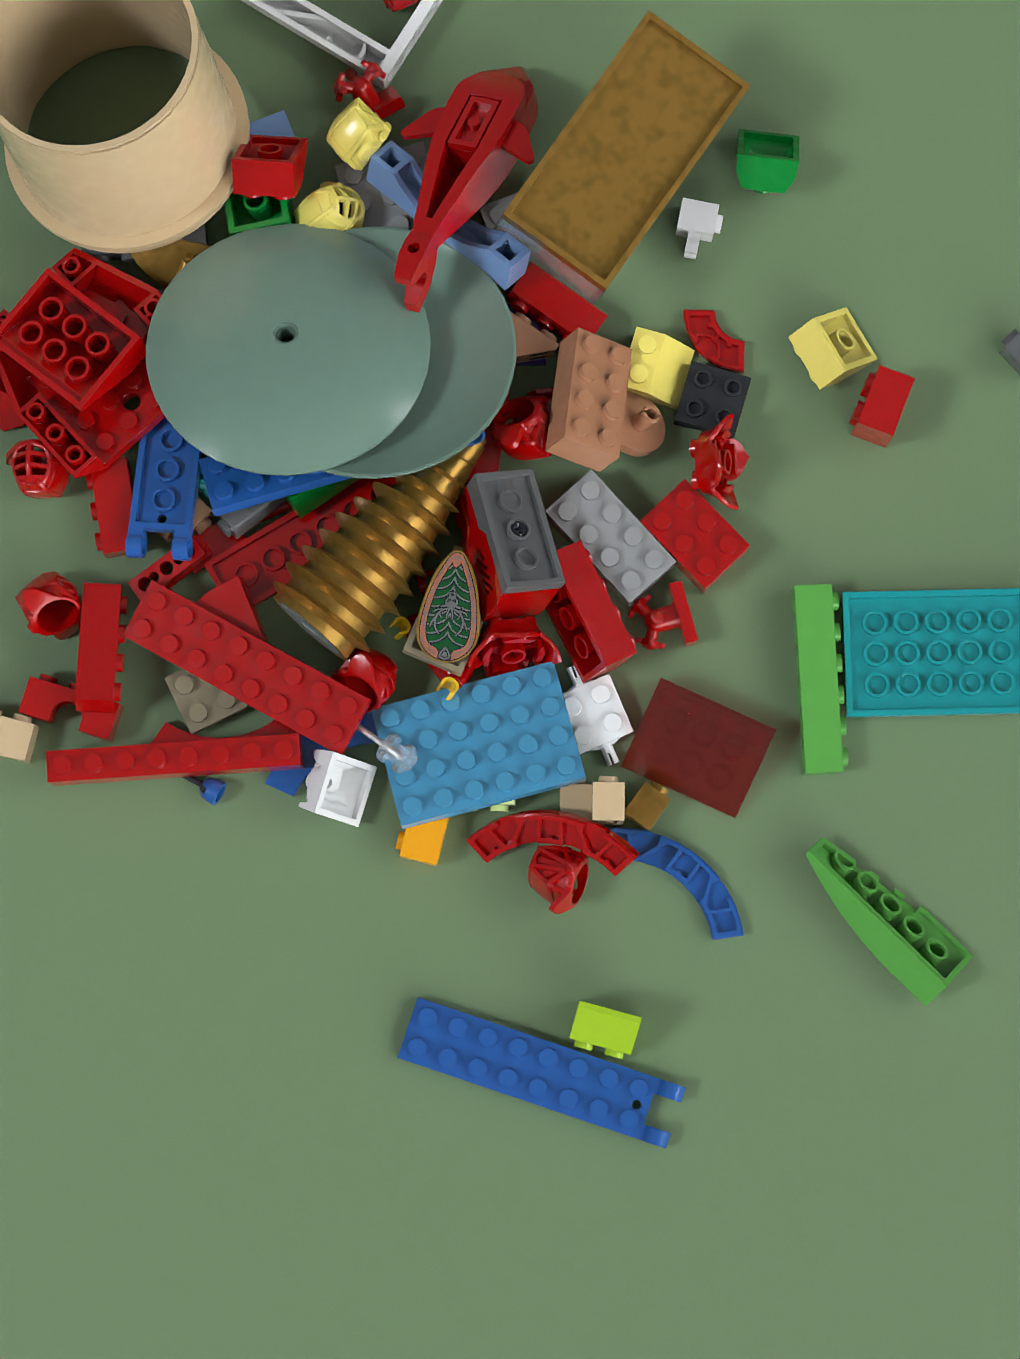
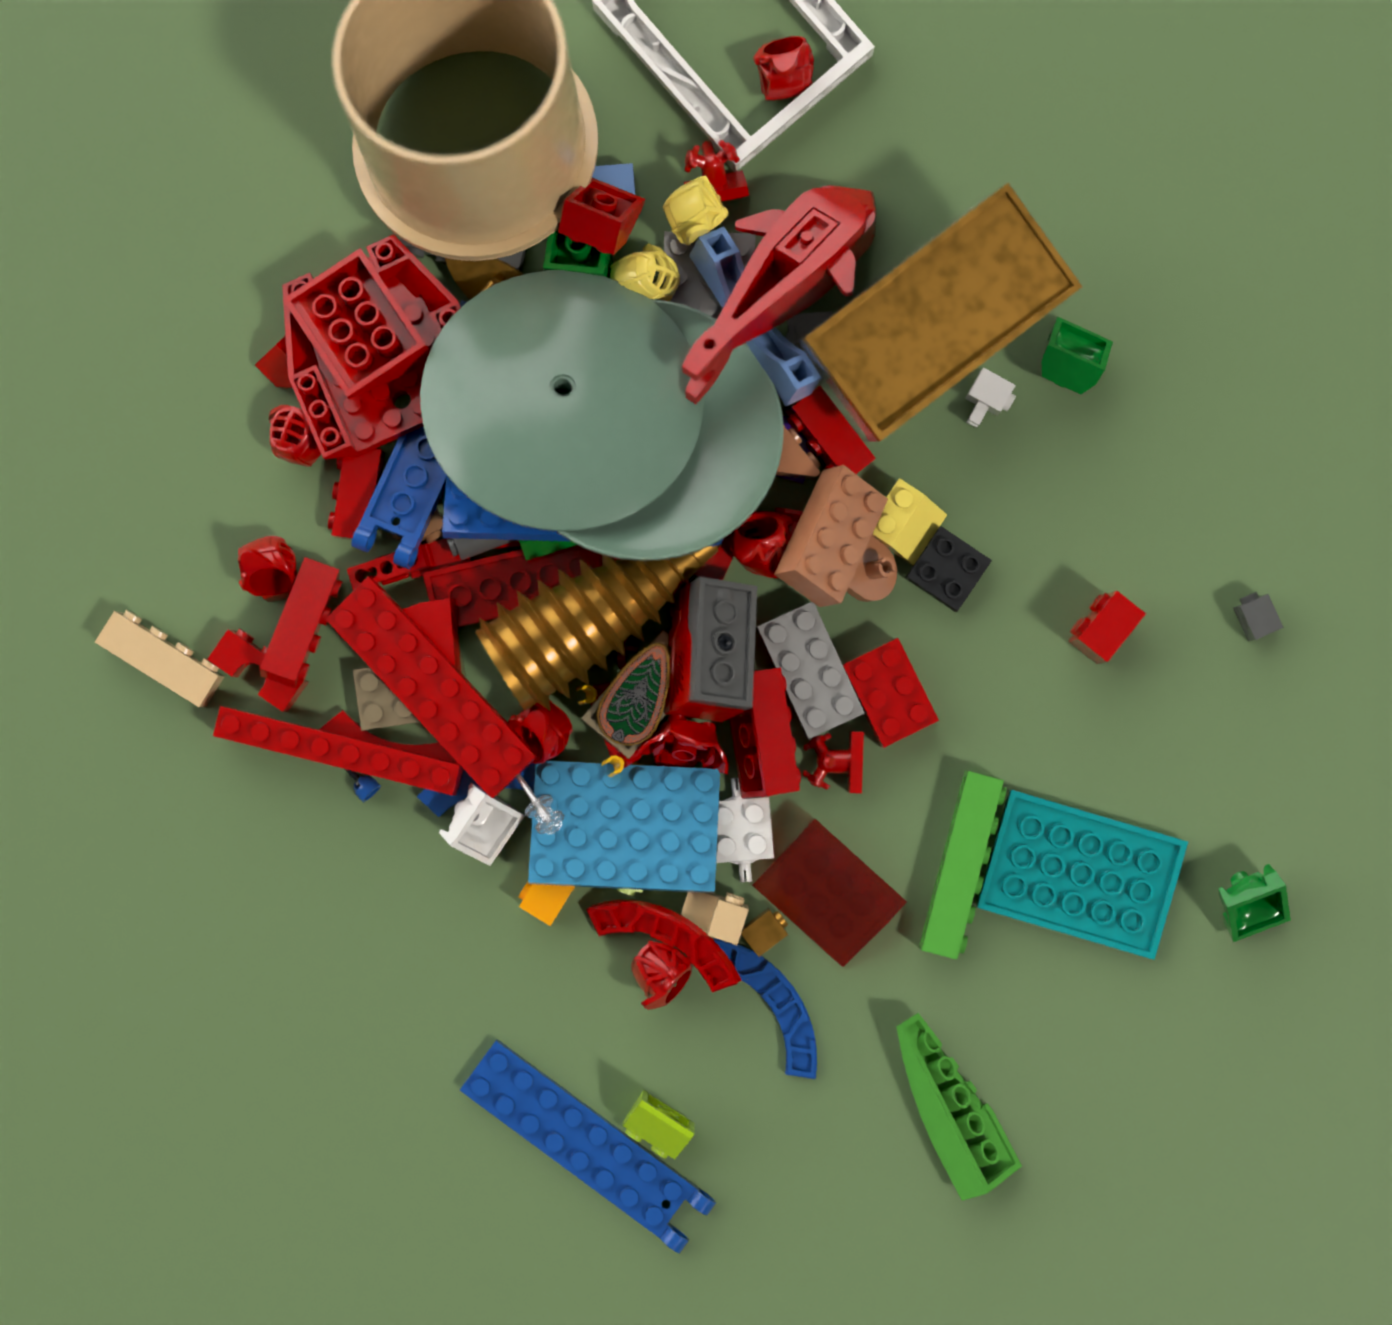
camera: 20 degrees right, 5 degrees up
(712, 342) = (966, 512): red tile -> none
(718, 462) = (934, 629): red brick -> none
(832, 347) = (1077, 554): light yellow slope -> none

